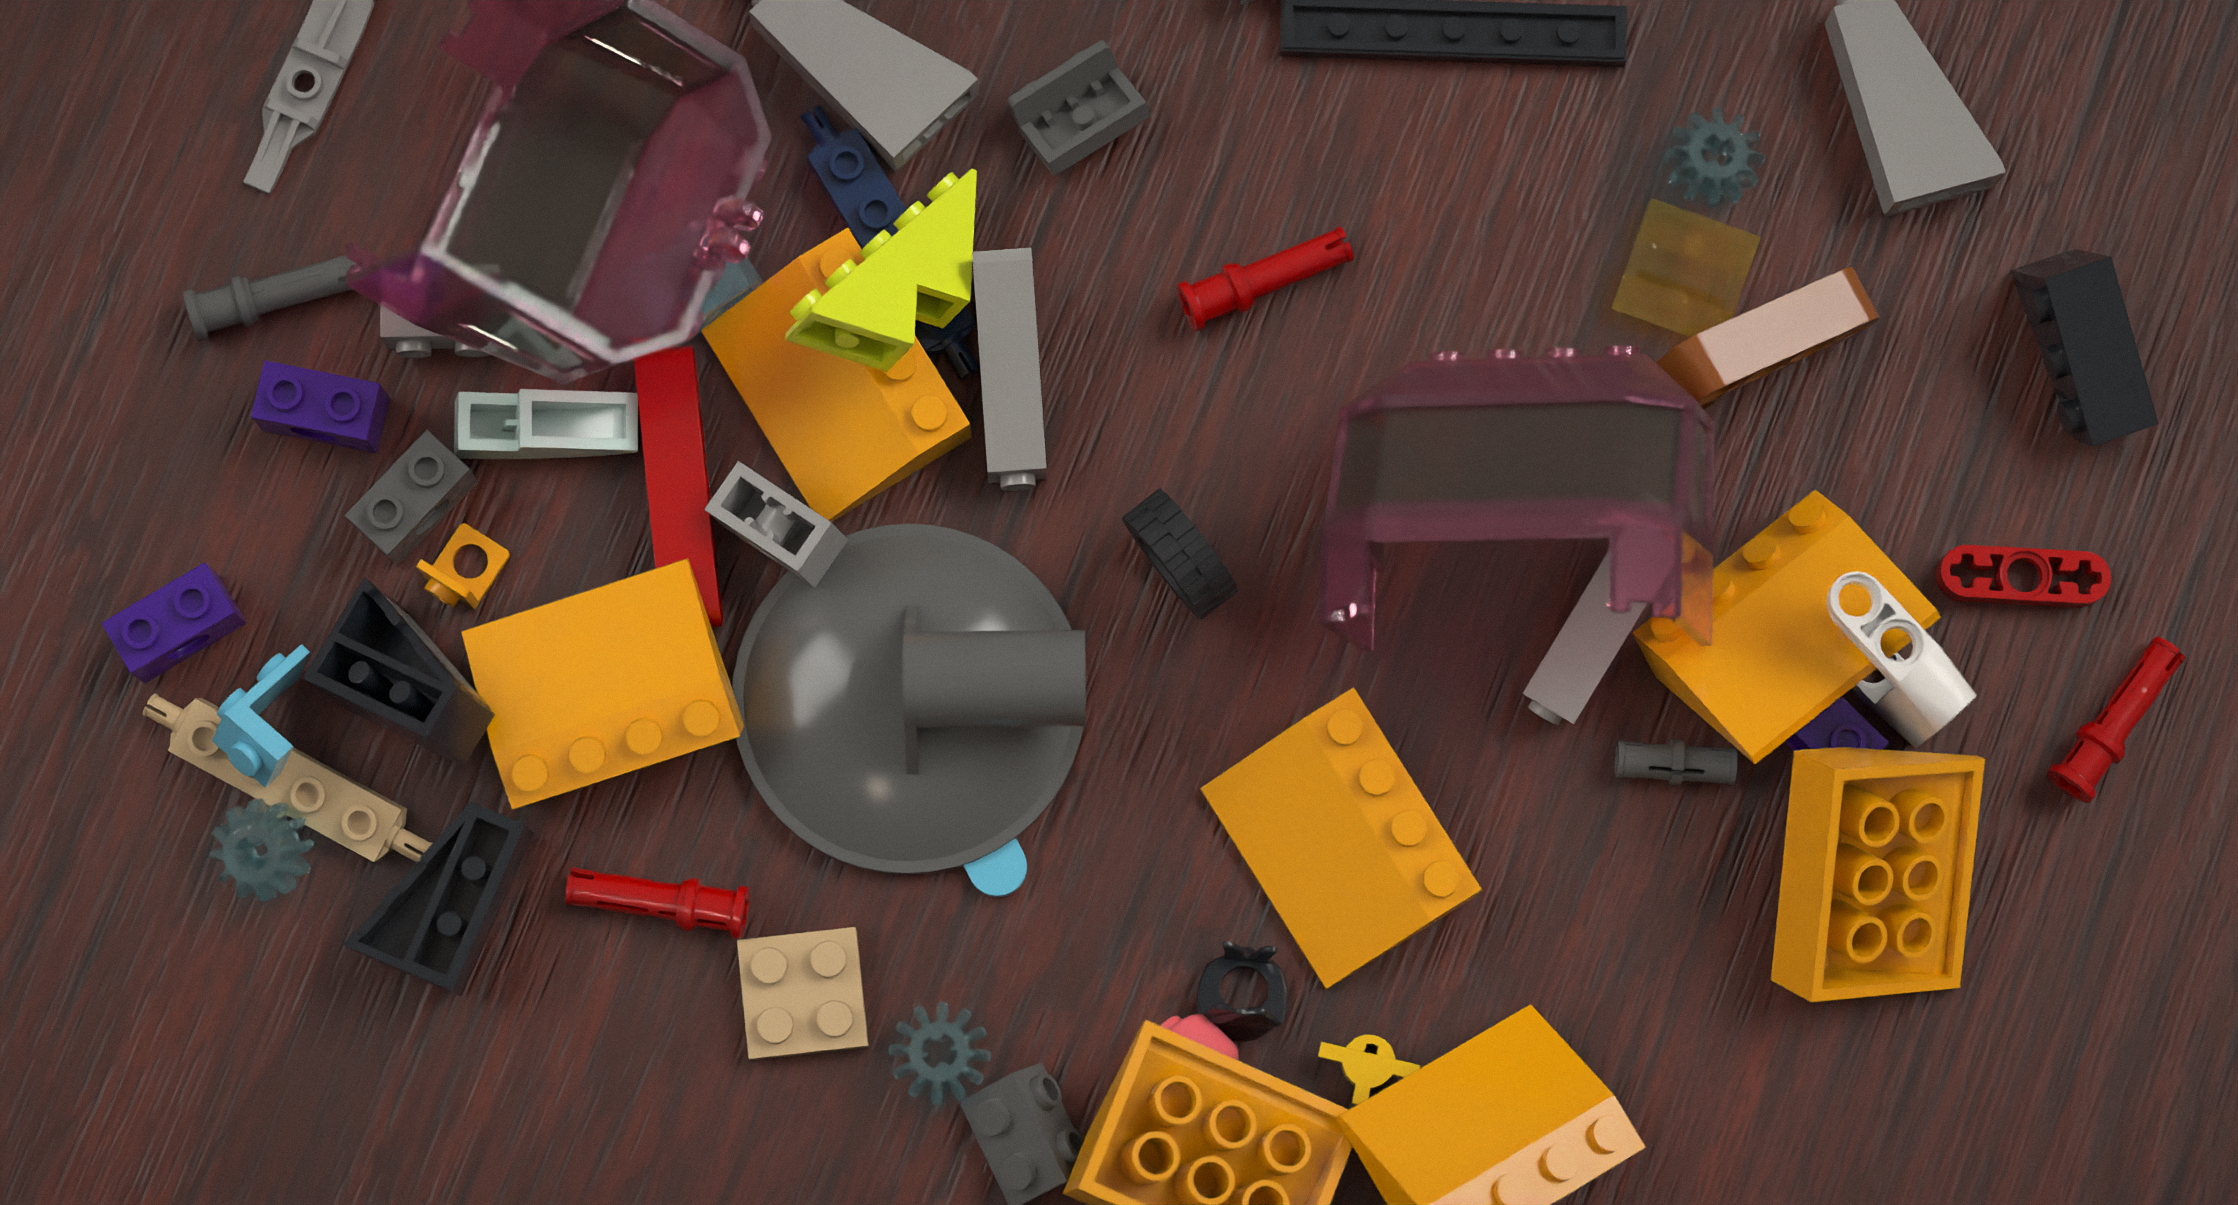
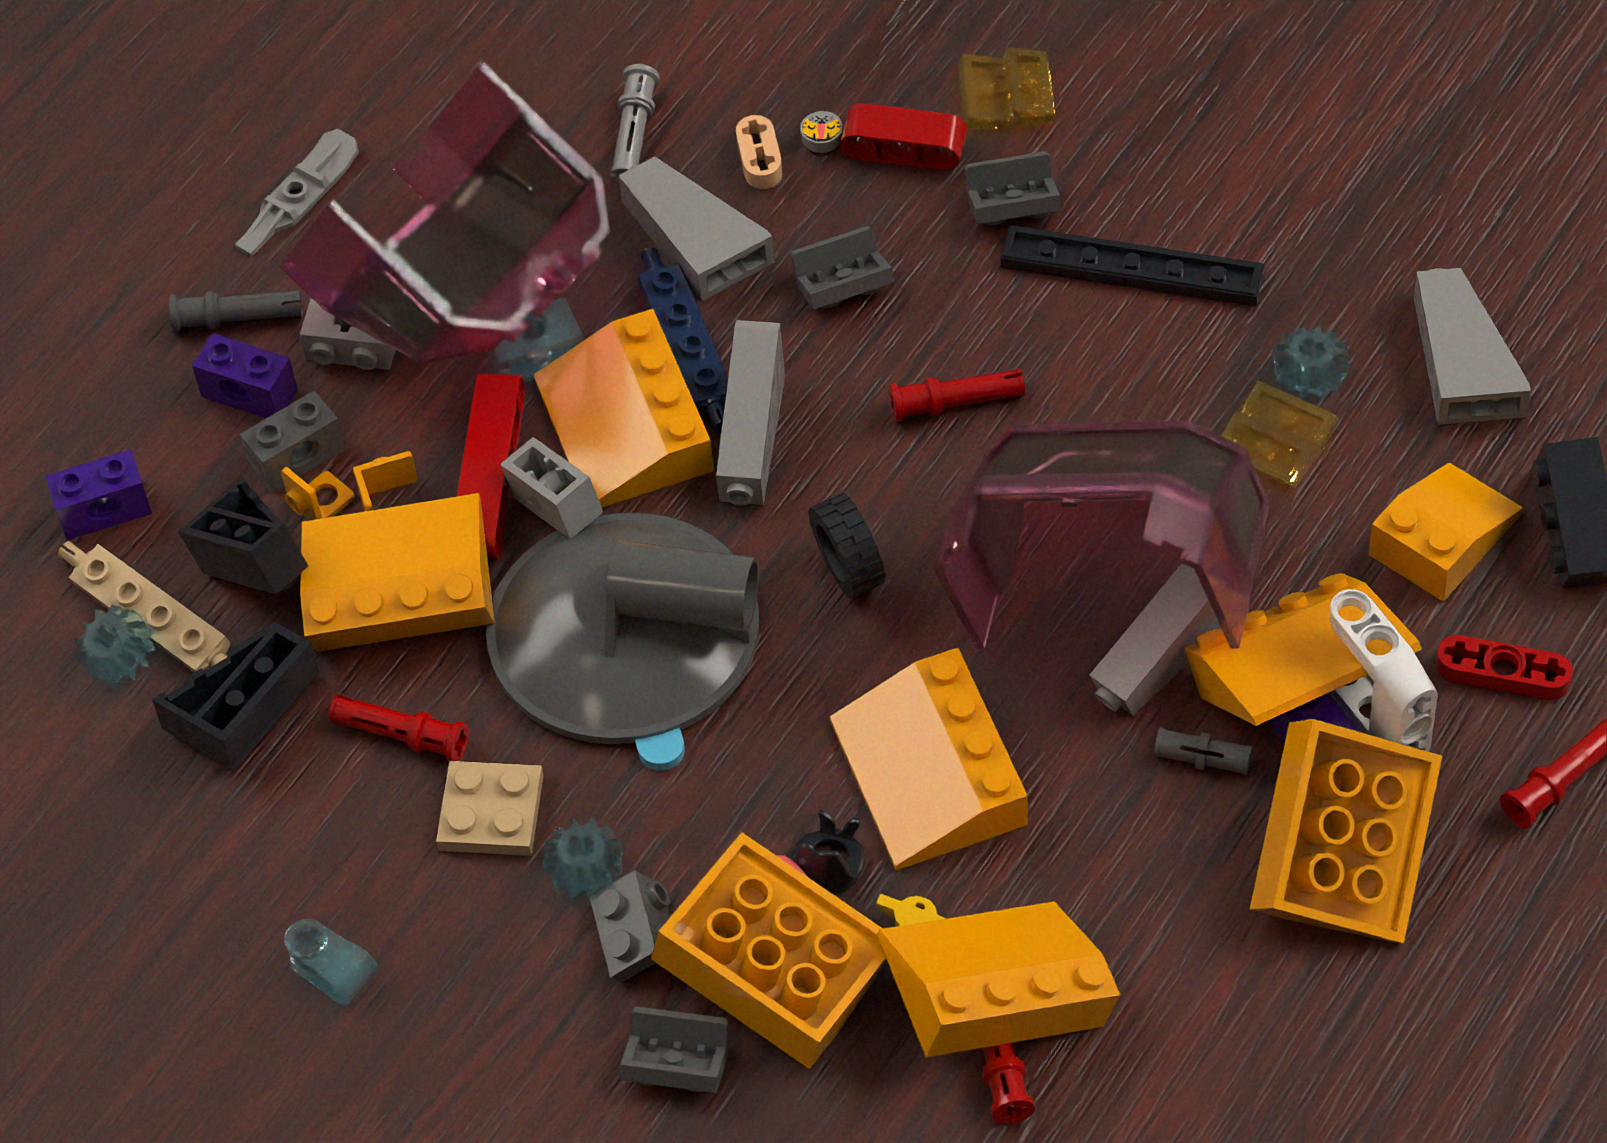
camera: 20 degrees right, 25 degrees down
(243, 735) = (132, 553): medium azure bracket -> none
(539, 526) = (384, 475): none -> light orange bracket
(544, 424) = (401, 411): light aqua slope -> none
(904, 278) = (682, 332): neon yellow slope -> none
(1770, 337) = (1331, 472): beam -> none
(1921, 382) = (1441, 529): none -> light orange slope

